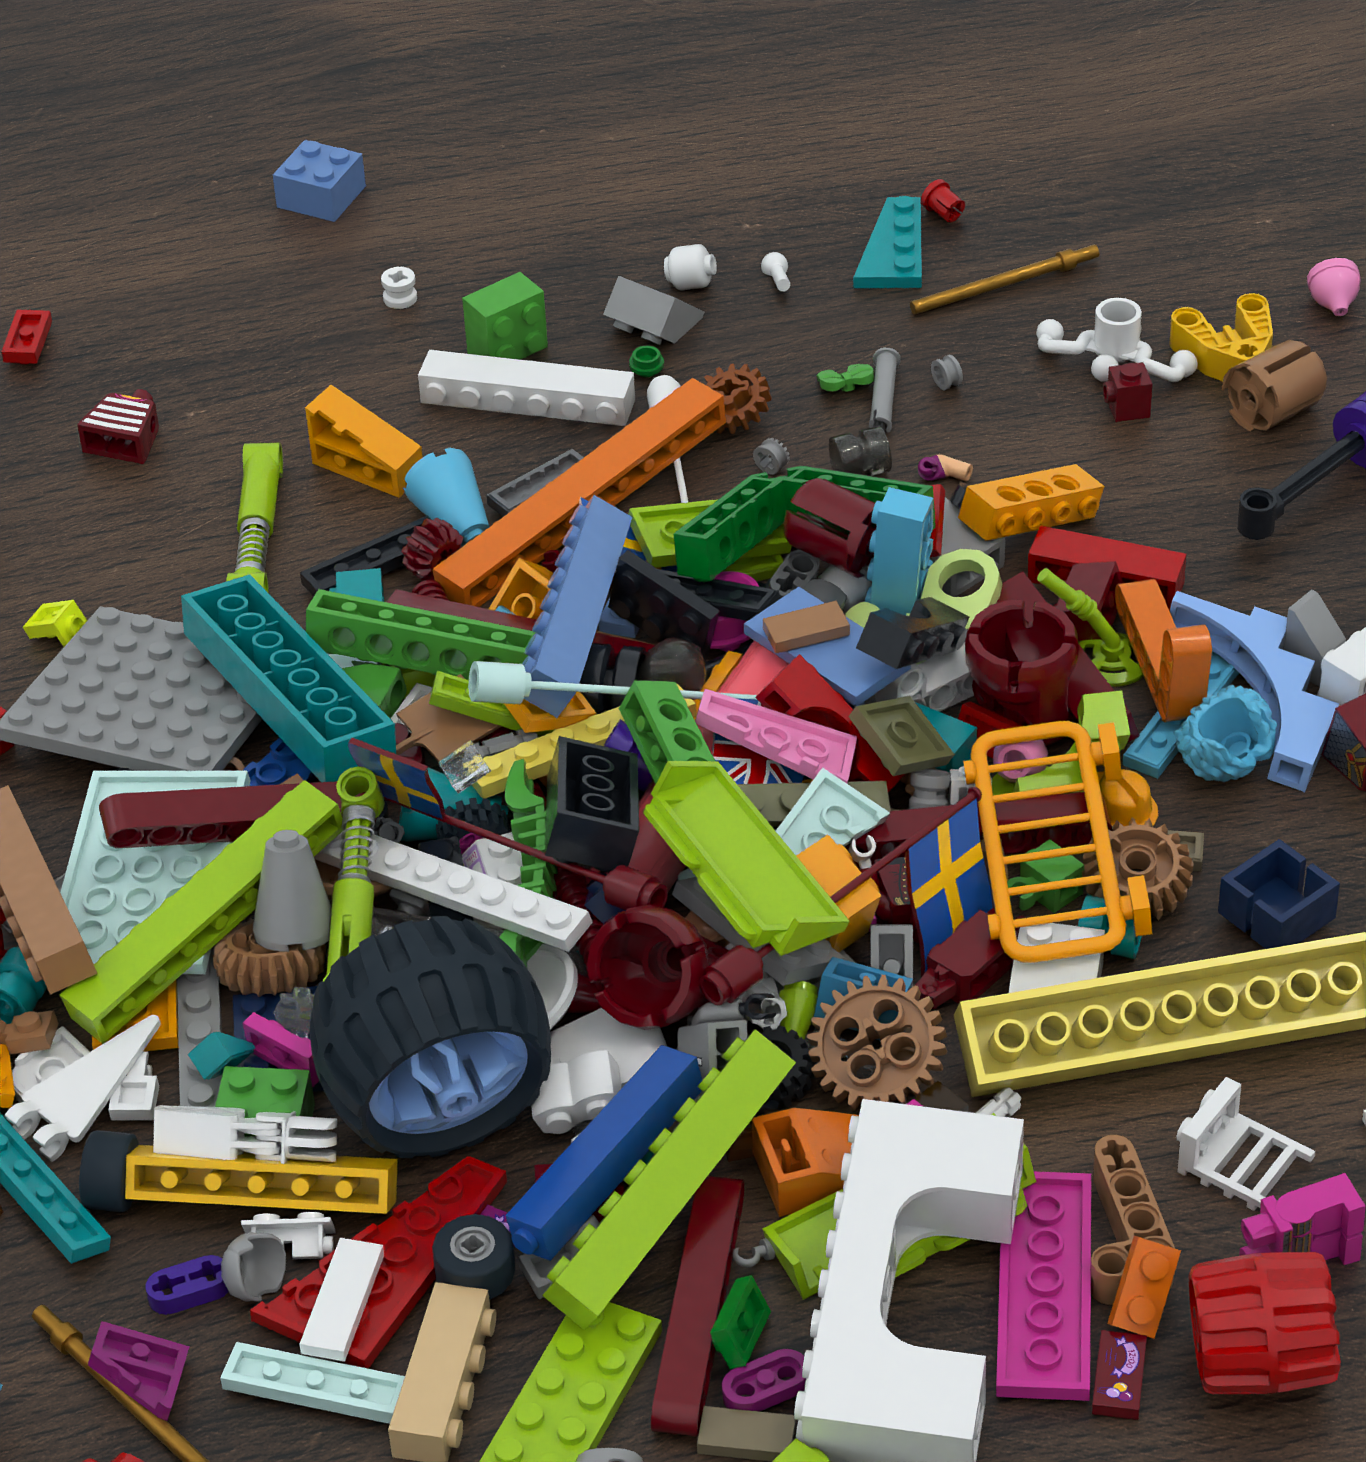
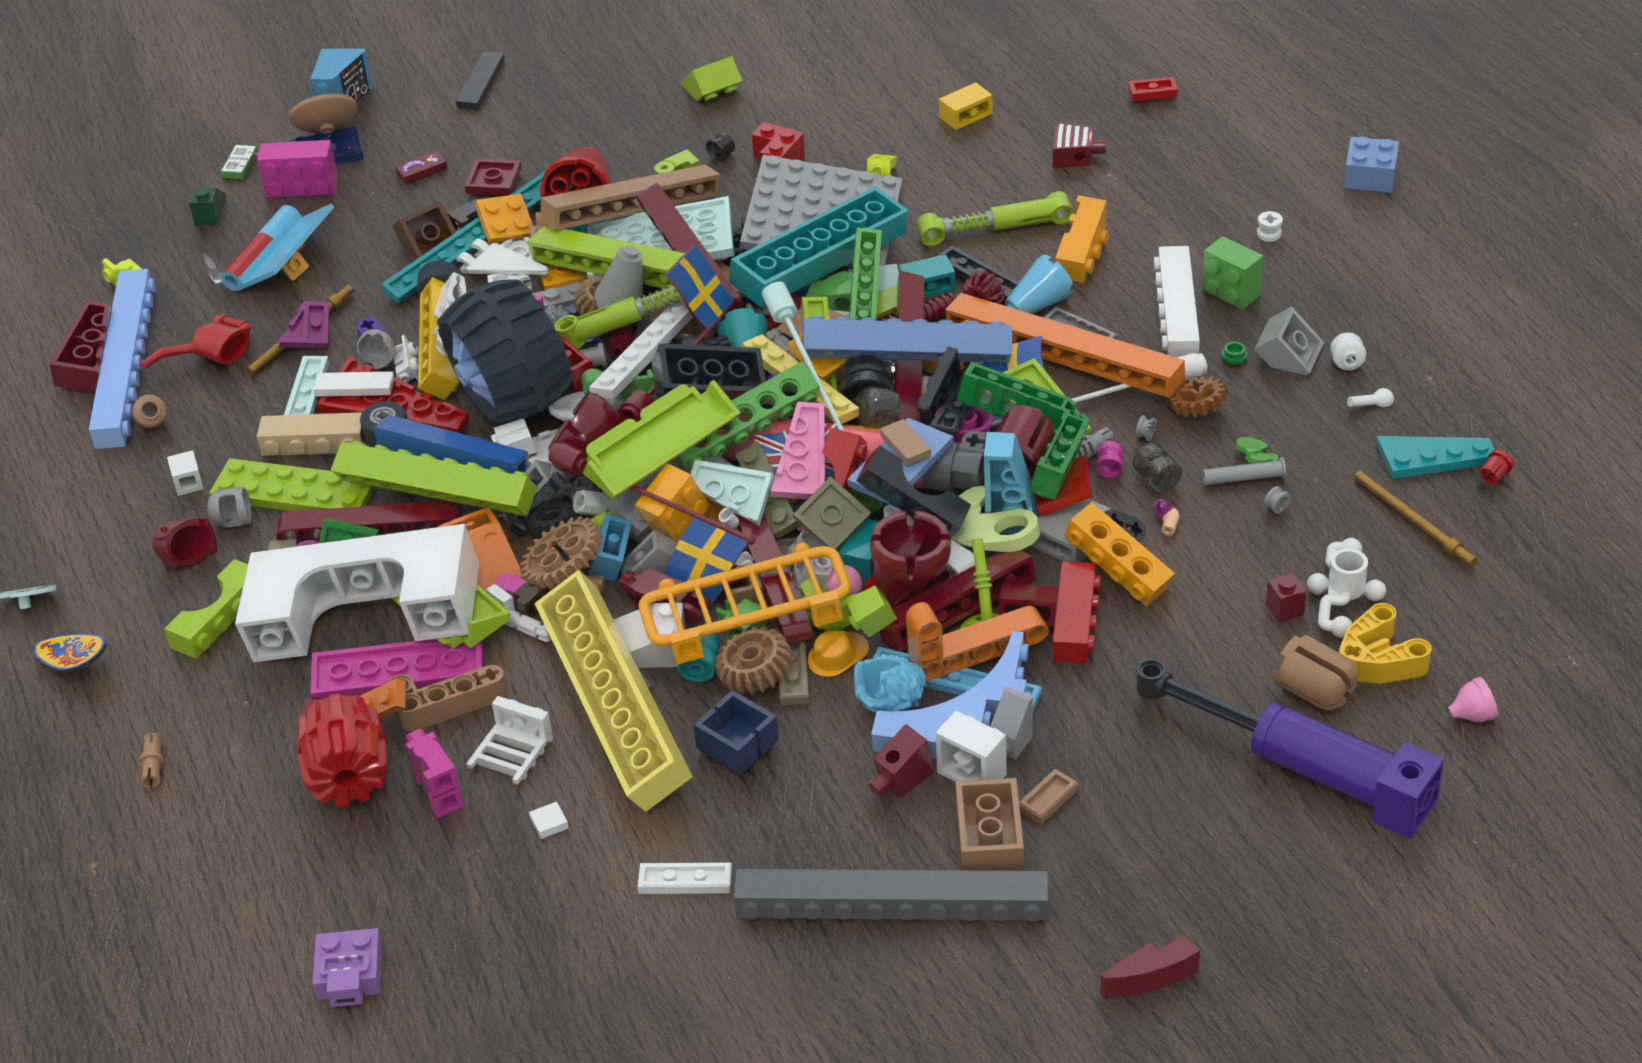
camera: 80 degrees right, 0 degrees up
(464, 766) = (753, 329): clear tile -> none

